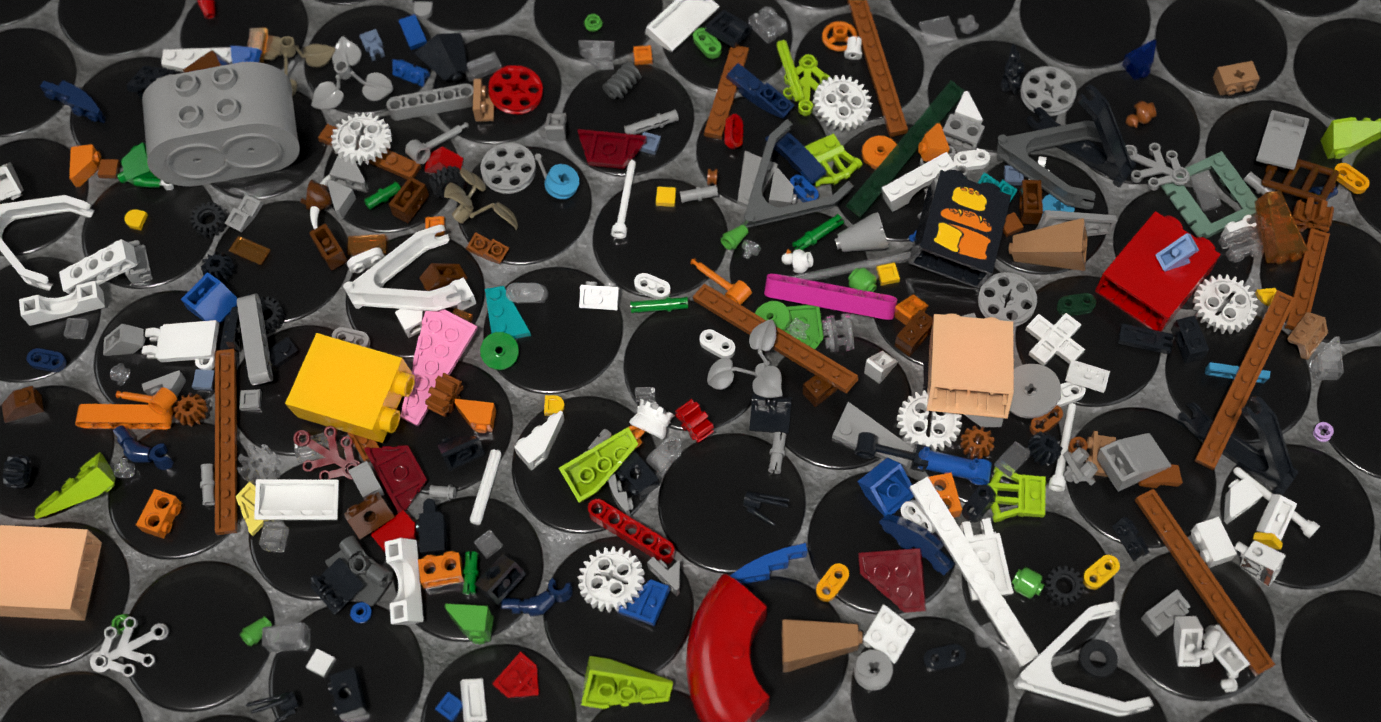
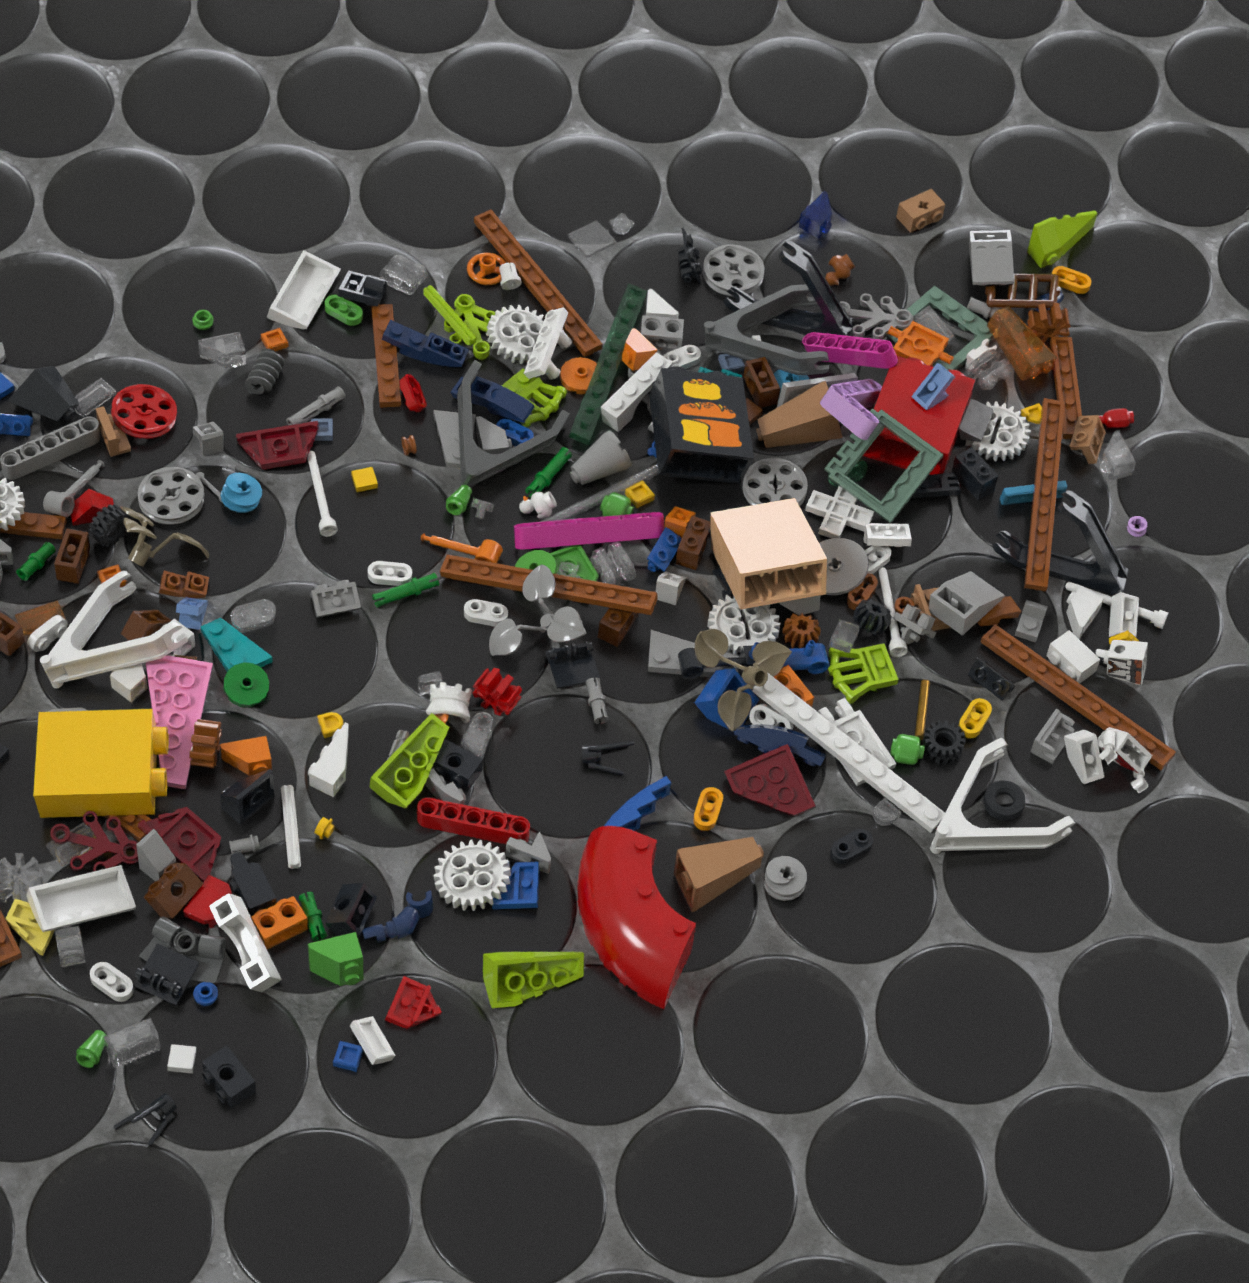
camera: 30 degrees left, 10 degrees down
(293, 579) = (113, 982): none -> white plate
(483, 273) = (191, 612): none -> medium blue slope
(488, 544) = (318, 883): clear tile -> none
(511, 497) = (324, 828): none -> yellow plate
(699, 193) = (401, 466): light grey pin -> none
(866, 108) = (548, 337): none -> white plate
(886, 332) = (663, 550): none -> blue hinge
(888, 633) = (785, 838): white hinge -> none
(932, 465) = (768, 658): none -> dark tan plant
(980, 504) = (827, 687): black plate -> none
(1057, 548) = (922, 709): none -> pearl gold piece
(1089, 246) = (849, 404): none -> lavender beam
(1119, 194) = (852, 349): none -> dark pink beam
(1122, 333) = (907, 483): none -> sand green hinge
(1186, 205) = (921, 344): none -> orange plate
(1189, 493) = (1031, 621): none -> light grey slope
(1207, 291) = (975, 421): none -> flat silver slope
(1343, 322) = (1117, 418): none -> red plant

